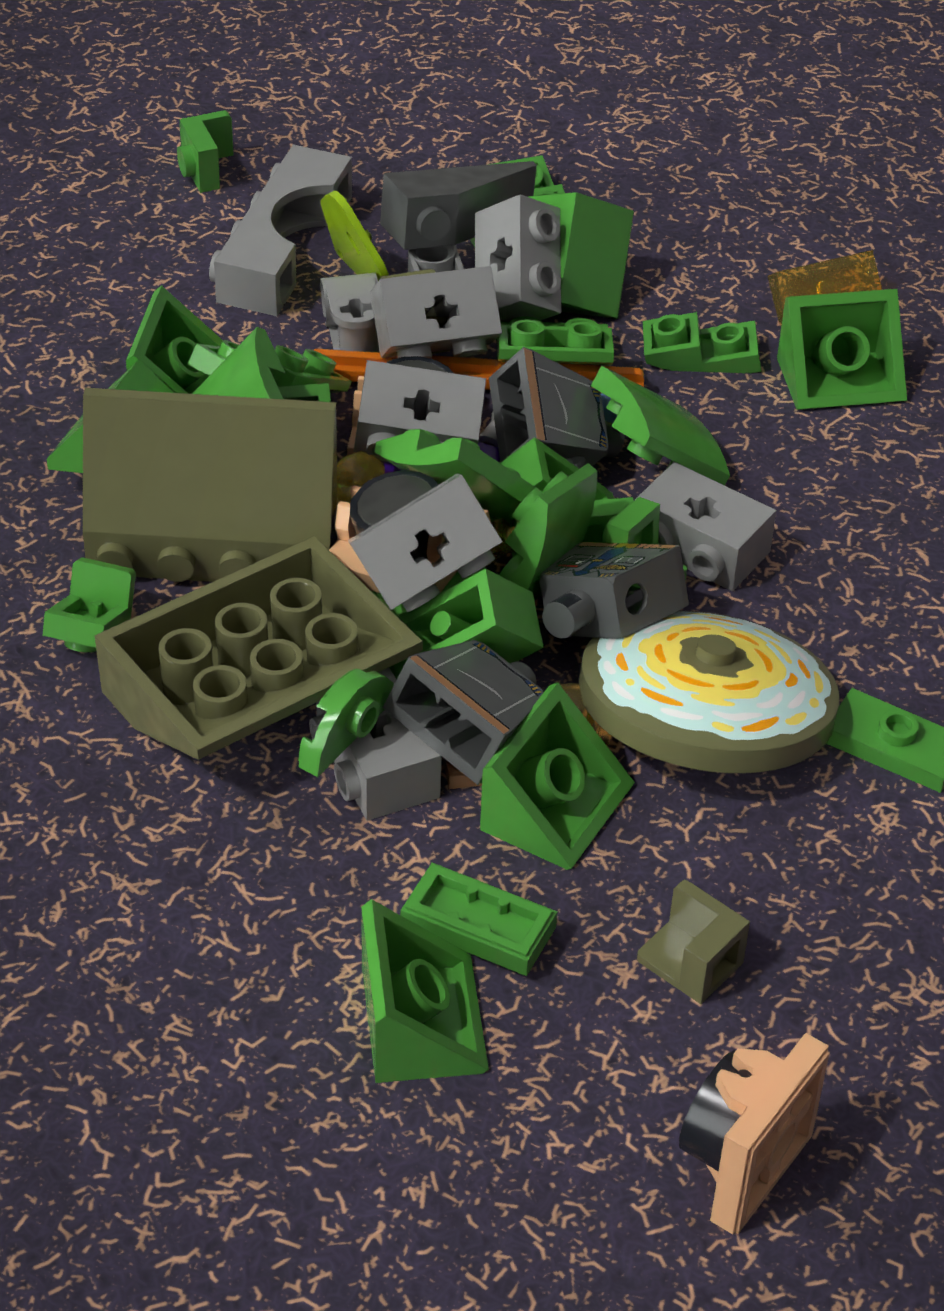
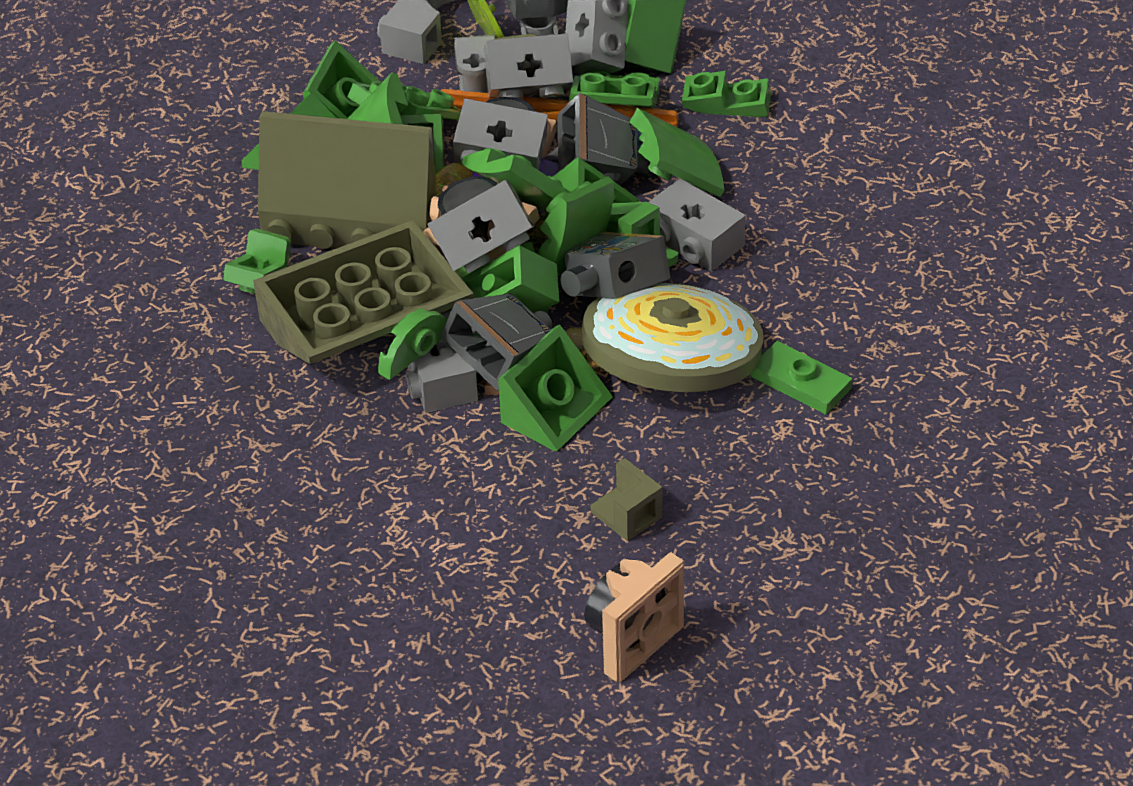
camera: 10 degrees right, 0 degrees up
(418, 1001) = (434, 525): bright green slope -> none
(480, 918) = (486, 478): bright green plate -> none
(836, 275) = (826, 56): clear yellow plate -> none
(843, 349) = (826, 101): bright green slope -> none

